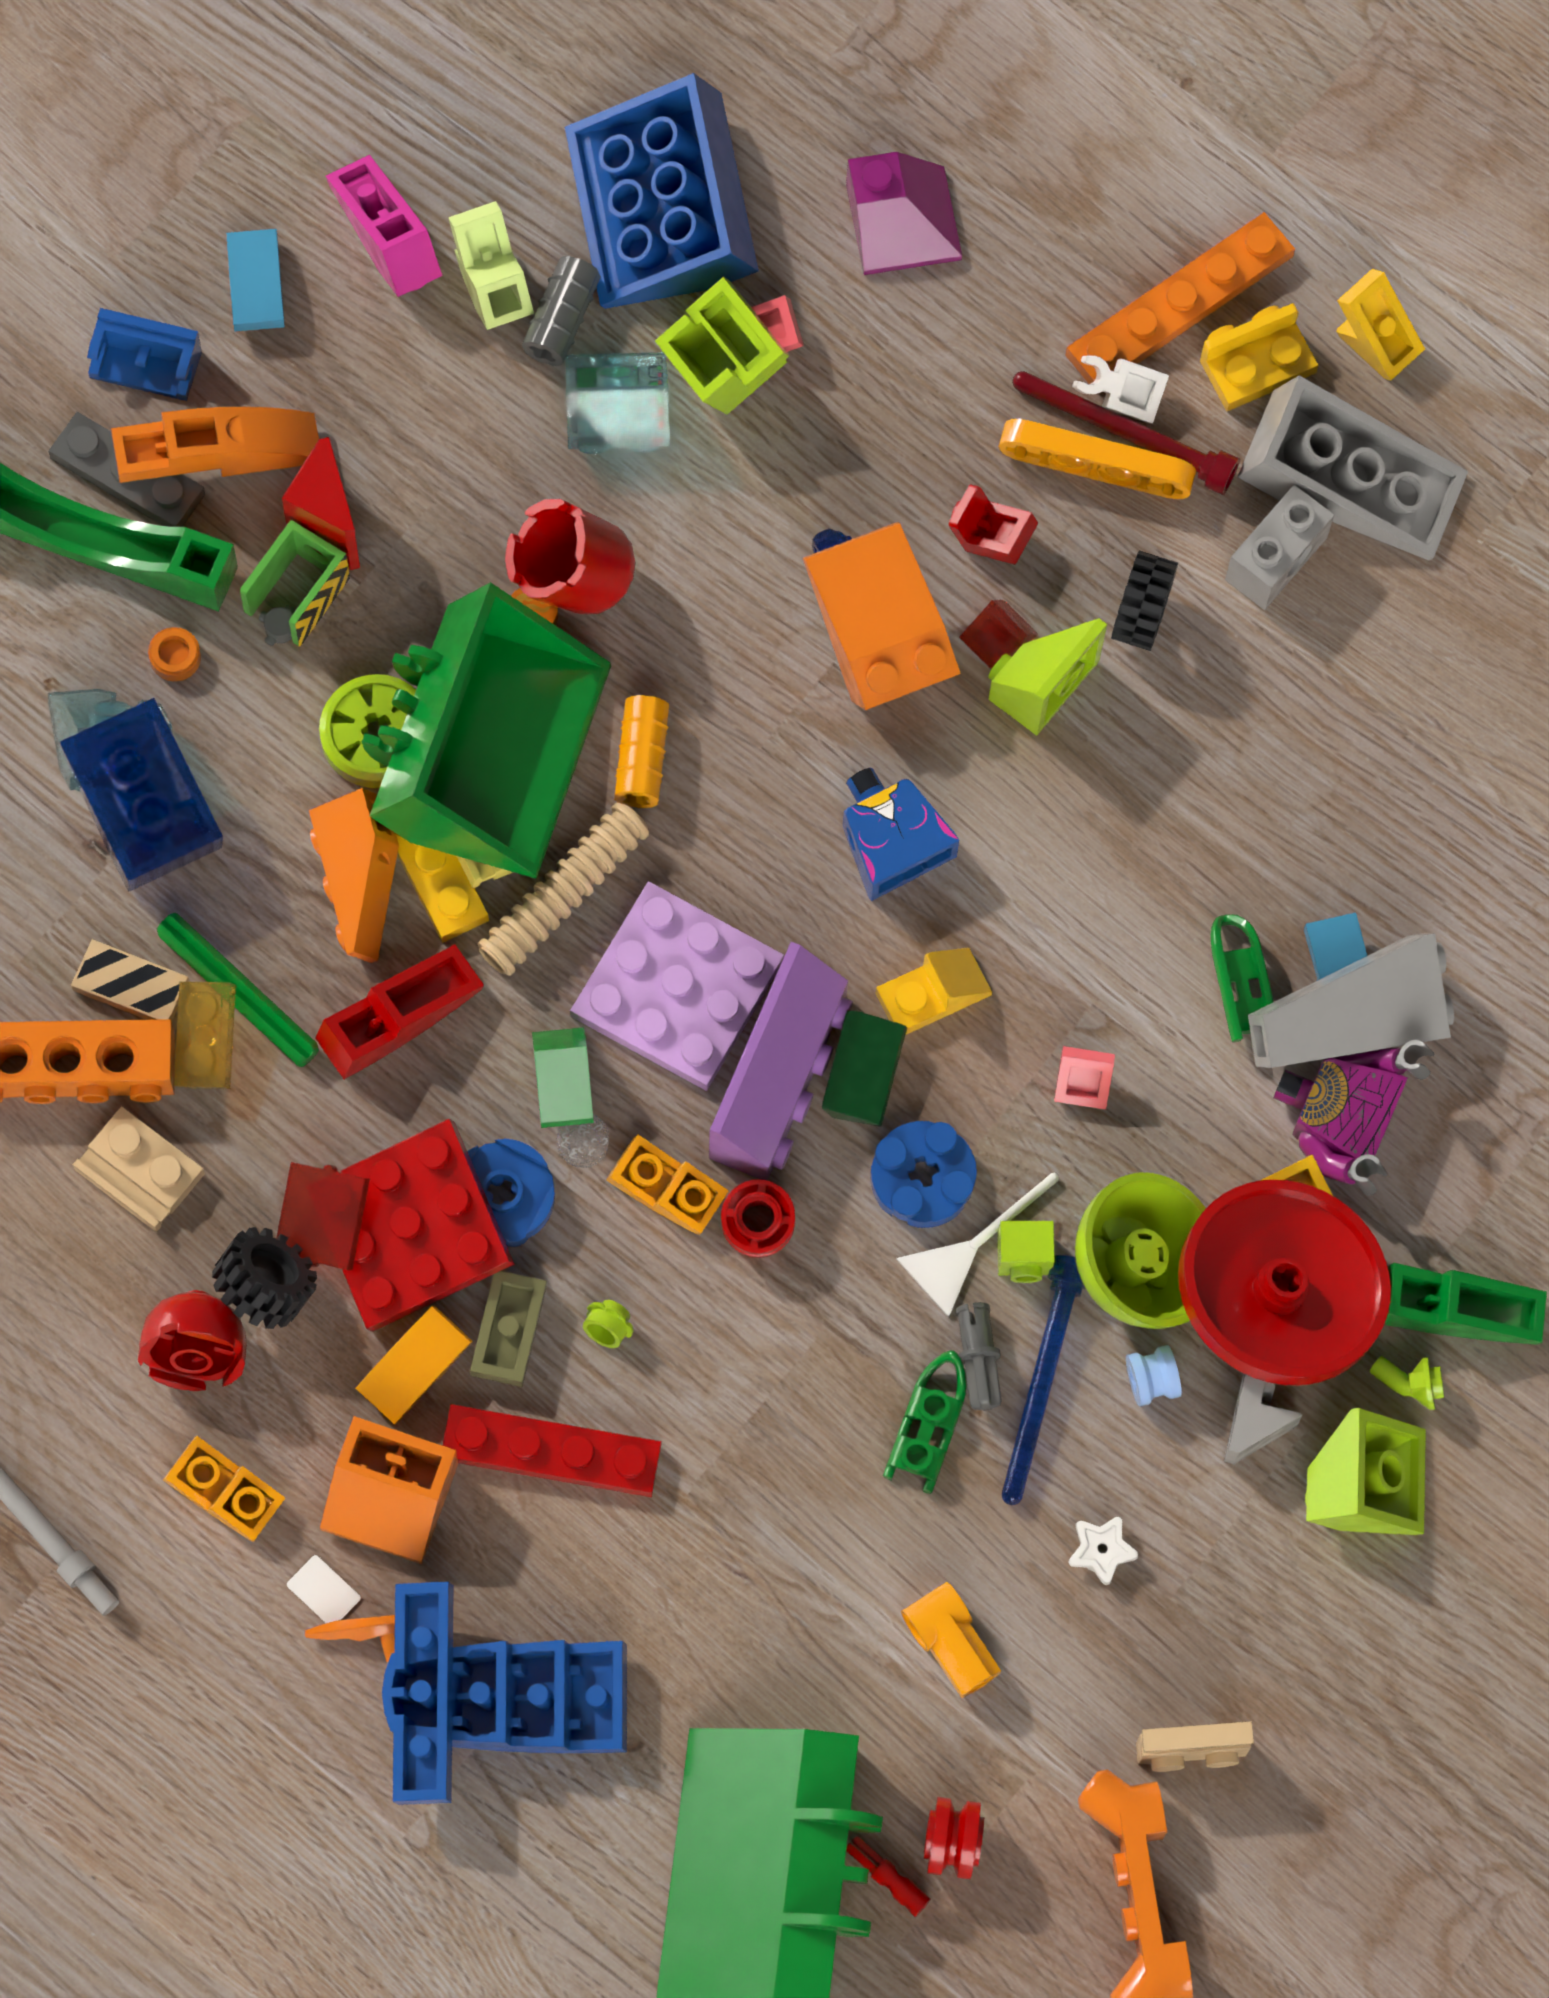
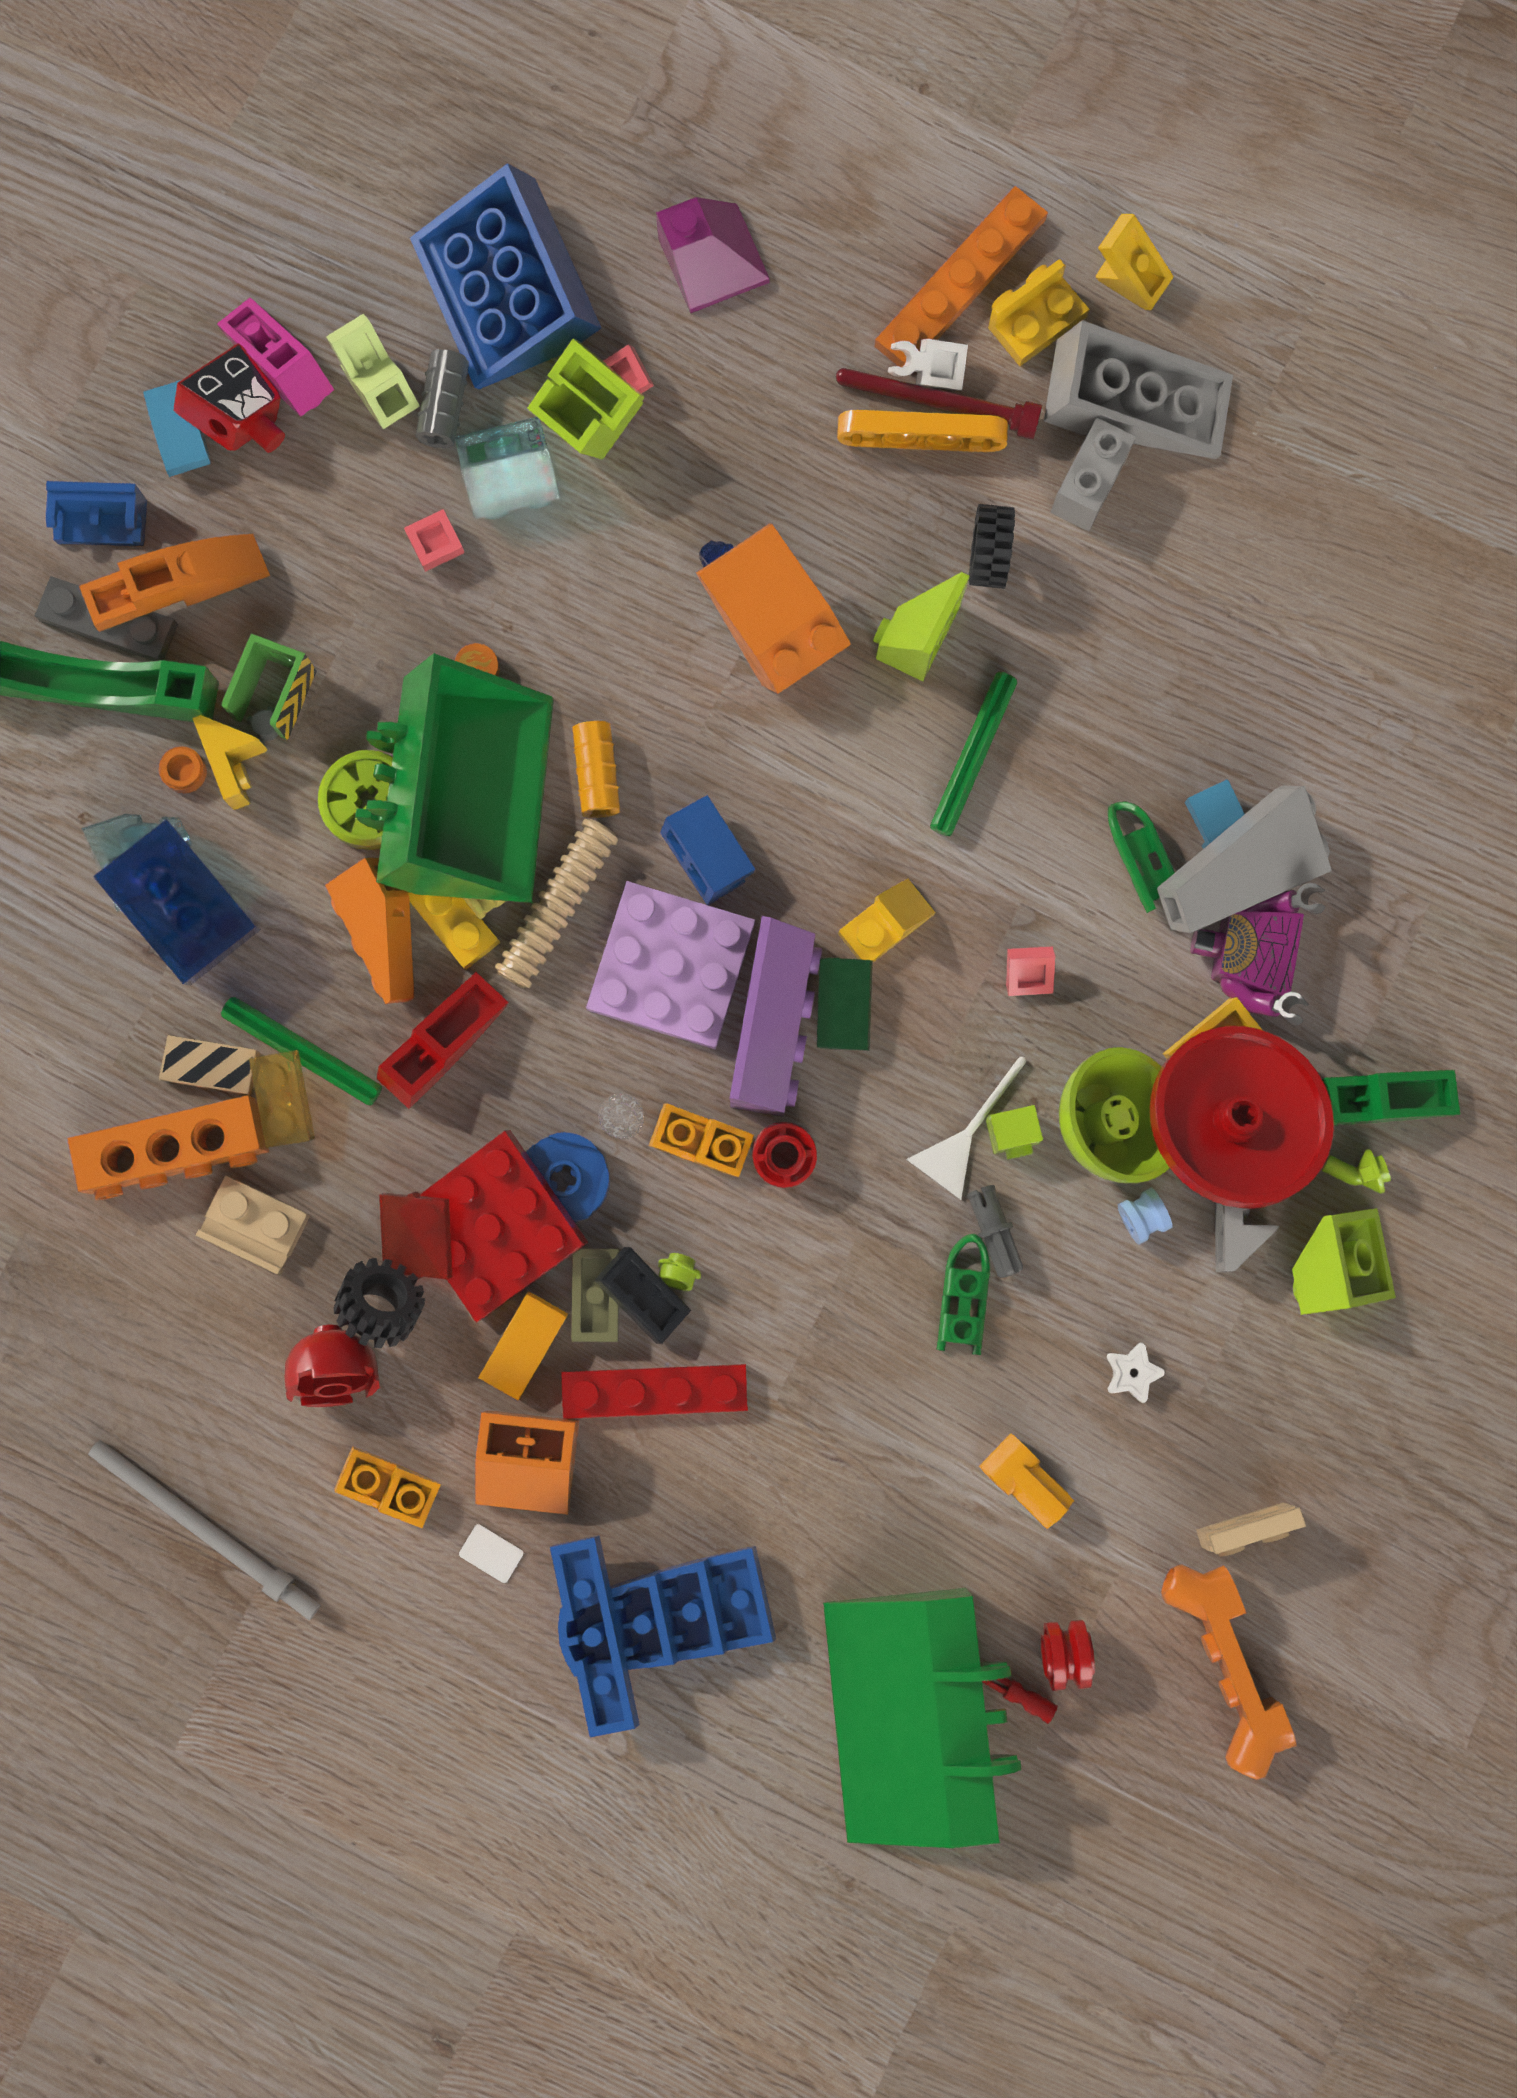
camera: 10 degrees left, 10 degrees up
(232, 641) = (224, 749): none -> yellow slope
(320, 504) = (271, 612): red slope -> none
(325, 265) = (231, 402): none -> torso
(359, 1630) = (527, 1583): orange bar -> none
(516, 463) = (434, 540): none -> coral plate
(562, 1077) = (592, 1067): slope -> none
(562, 1337) = (642, 1295): none -> black plate
(570, 558) = (497, 615): red cylinder -> none
(746, 866) = (706, 849): none -> blue hinge
(894, 833) = (824, 793): blue torso -> none
(936, 1146) = (922, 1057): blue plate -> none
(991, 527) = (847, 510): red bracket -> none
(997, 632) = (872, 601): clear red slope -> none
(1066, 1286) = (1055, 1152): clear blue piece -> none
(1075, 826) = (973, 754): none -> green axle

